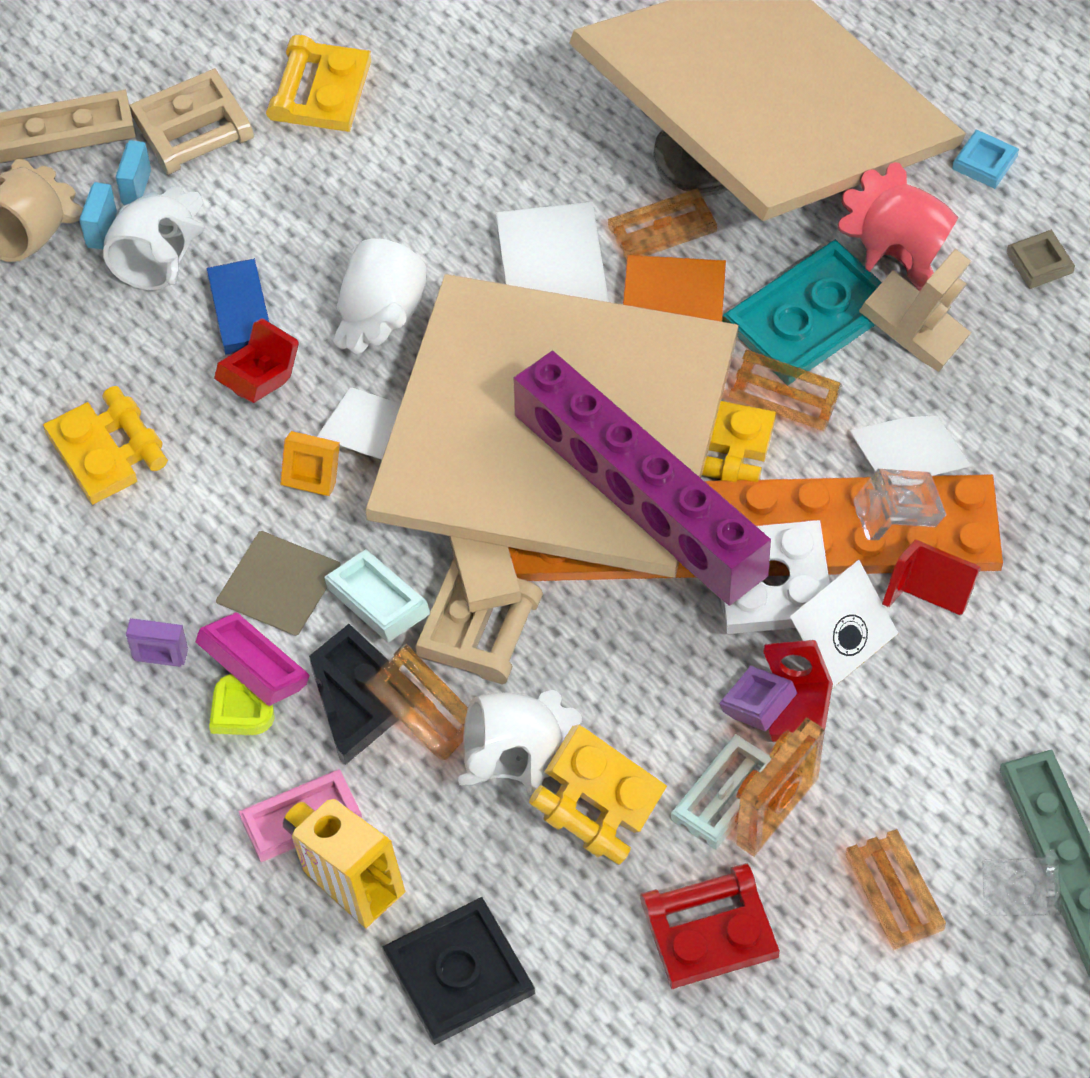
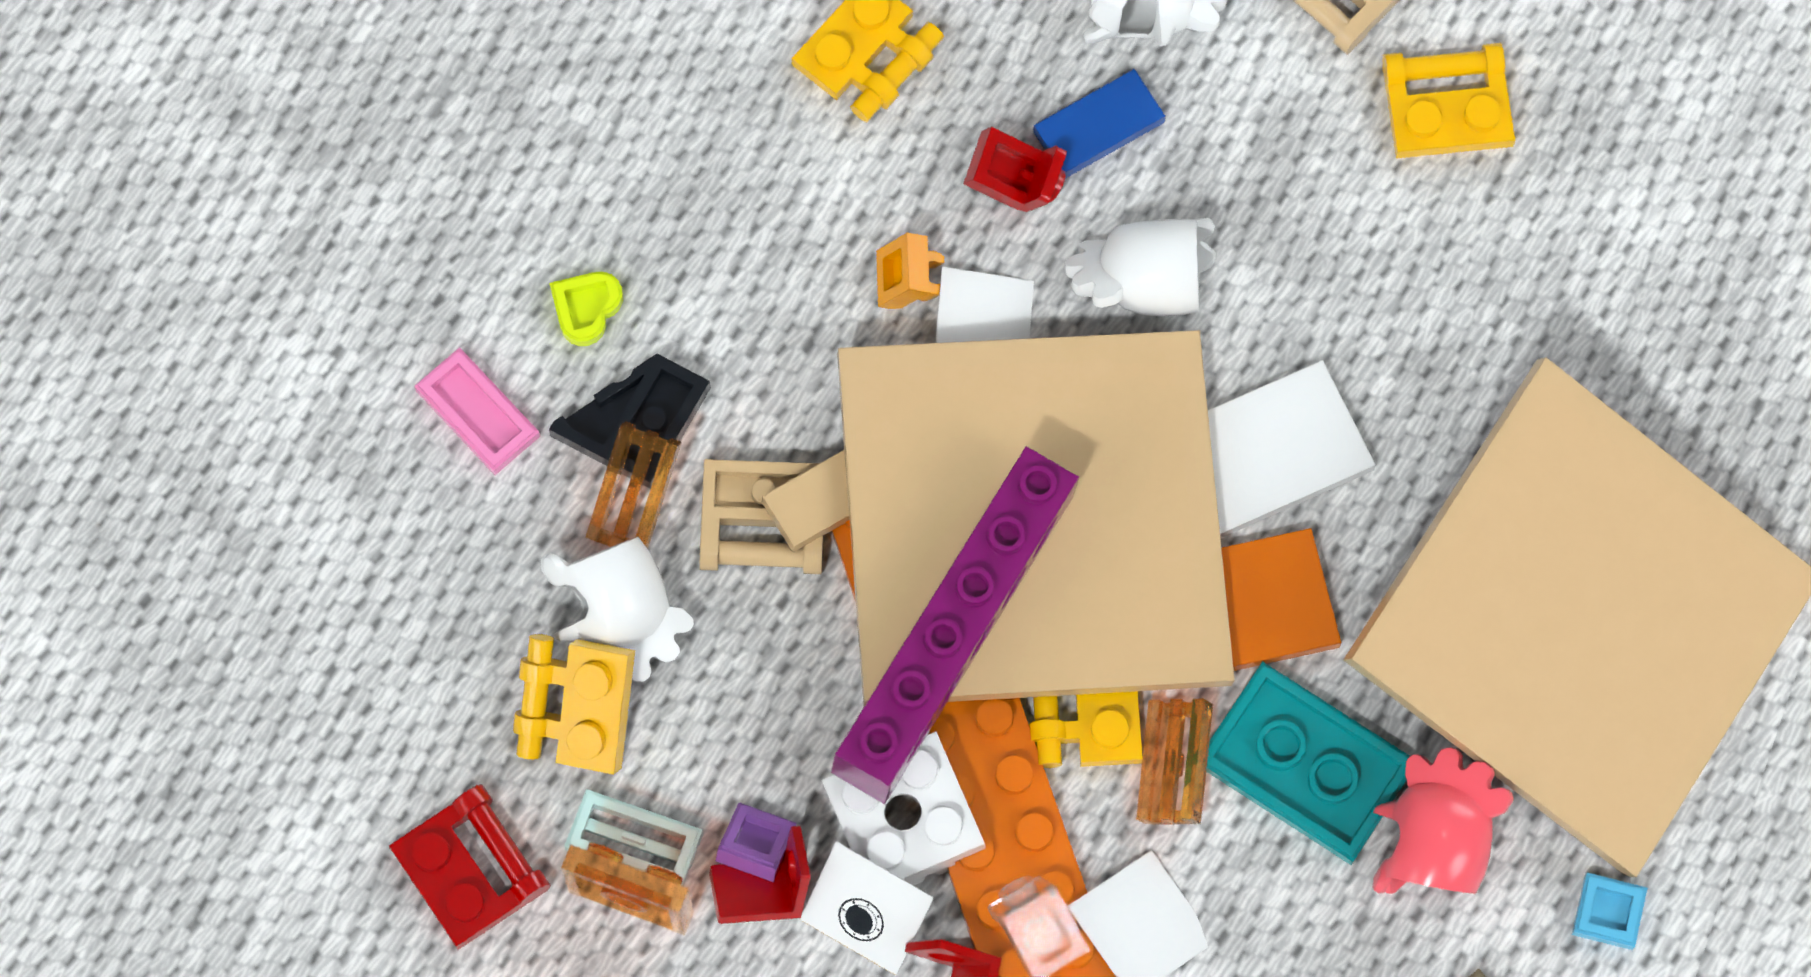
camera: 70 degrees right, 15 degrees up
(157, 642) = (627, 193): medium lavender tile -> none
(252, 658) = (642, 297): dark pink tile -> none
(277, 583) = (754, 292): dark tan sticker -> none
(346, 858) = (420, 469): yellow torso -> none
(377, 595) = (756, 398): light aqua tile -> none
(458, 970) = (347, 627): black tile -> none
(665, 231) = (1347, 559): clear orange tile -> none
(921, 318) = (1323, 885): tan bracket -> none

